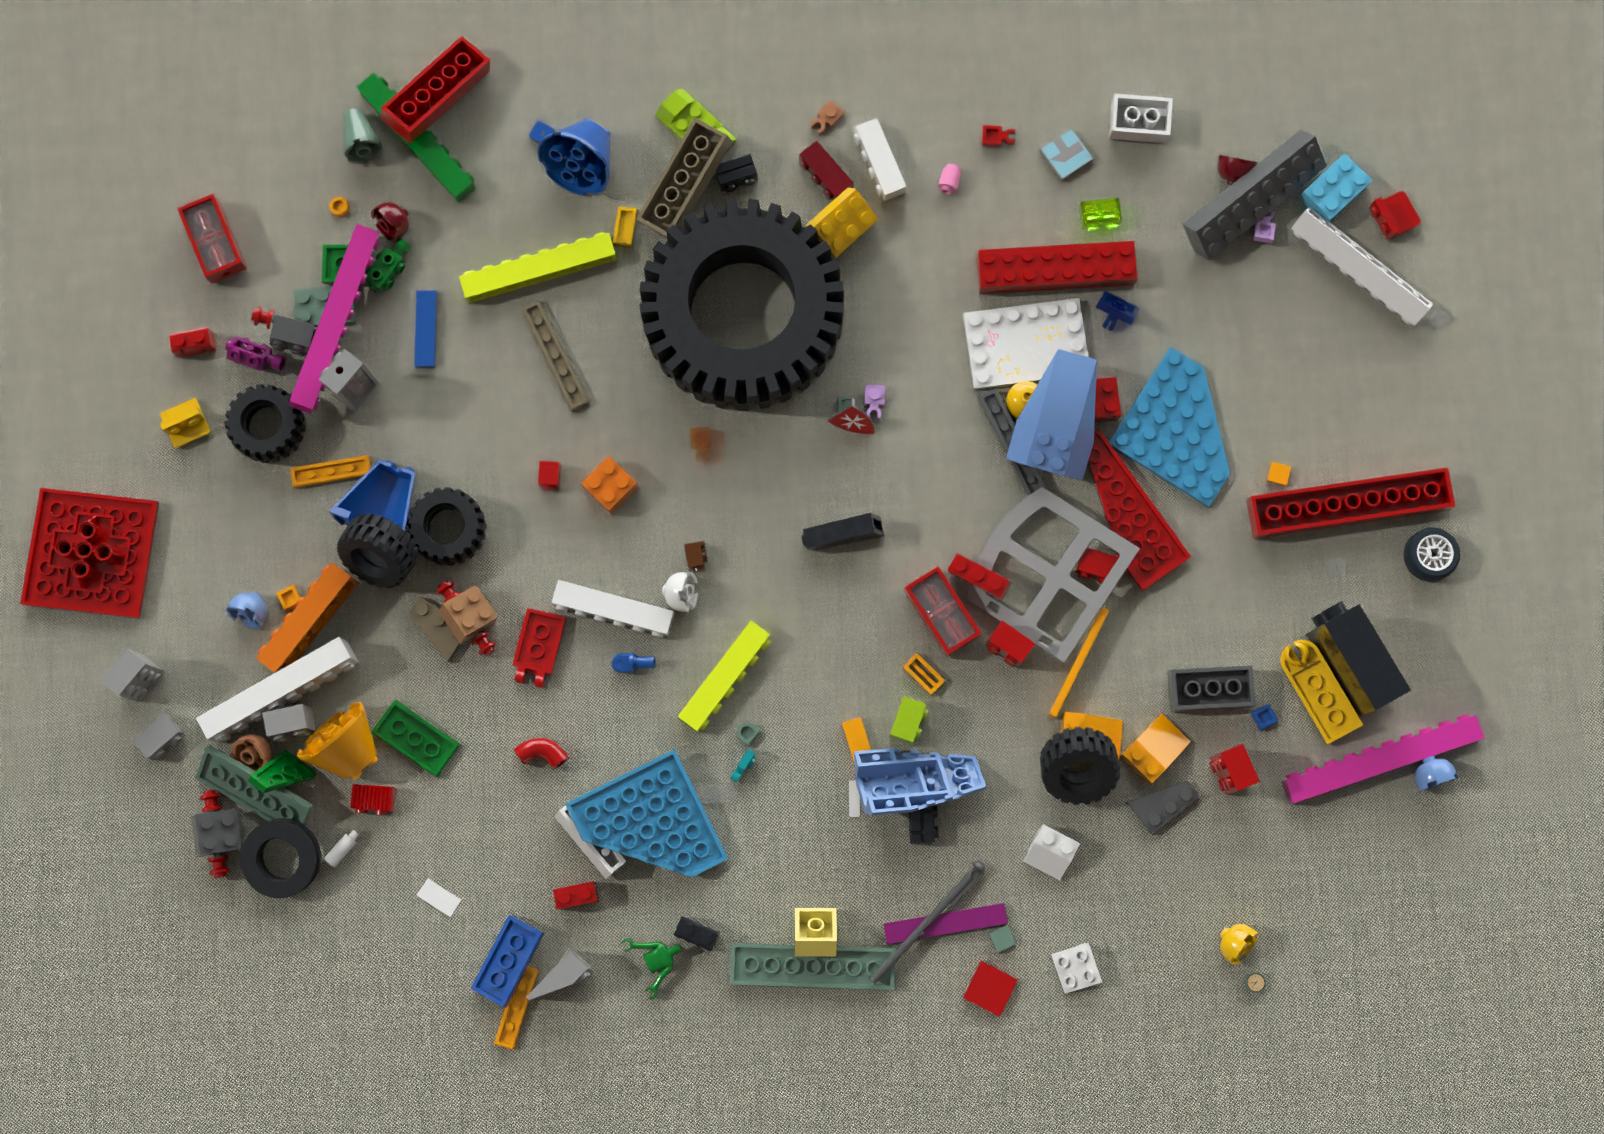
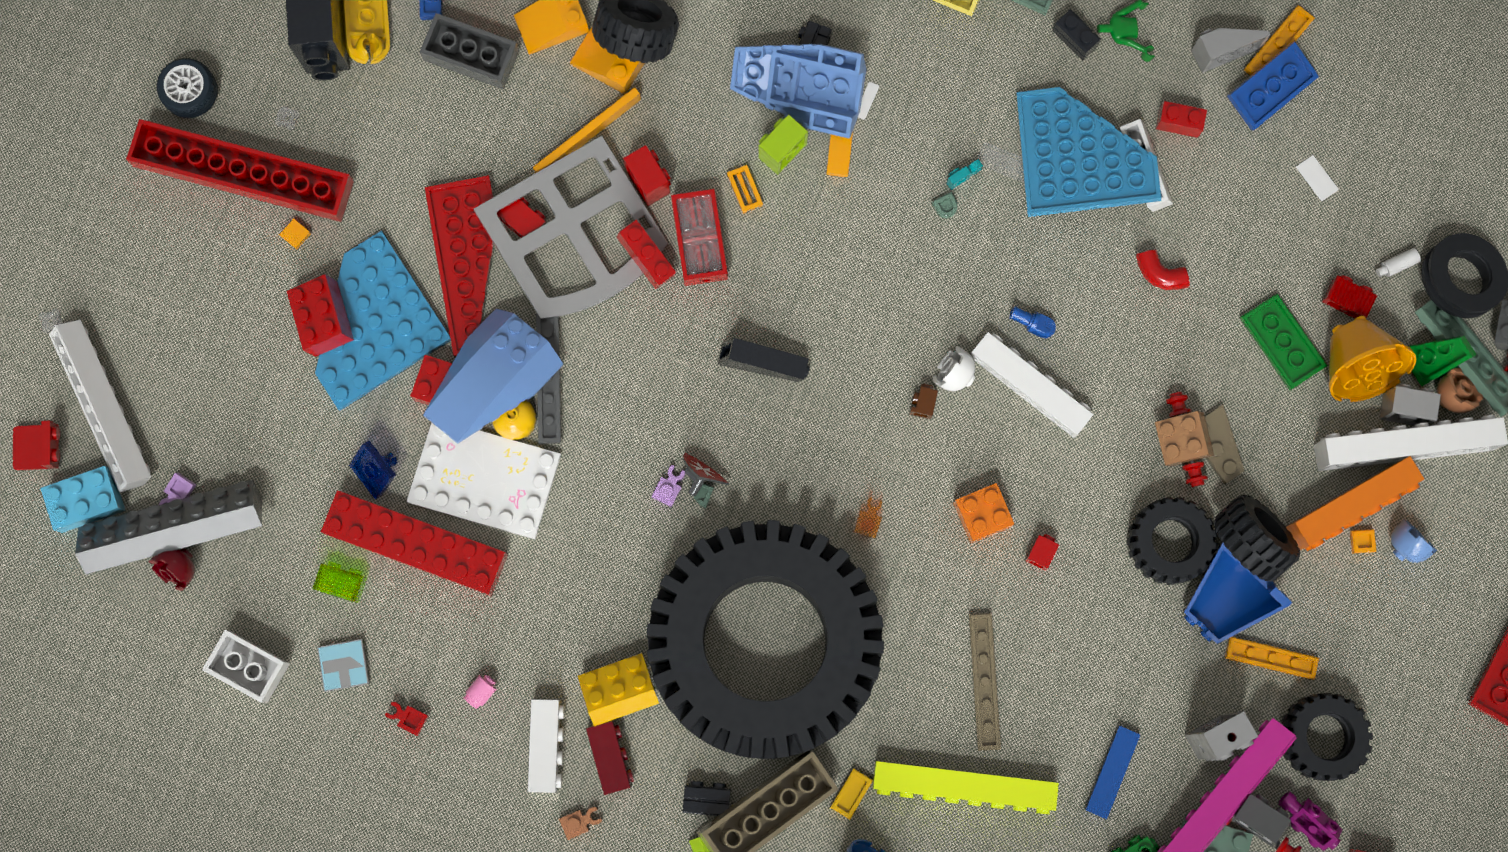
camera: 160 degrees left, 0 degrees up
(184, 423) = (1411, 779): yellow bracket -> none
(538, 645) = (1122, 381): red tile -> none
(724, 676) = (946, 268): neon yellow brick -> none
(1222, 411) = (320, 315): none -> red brick

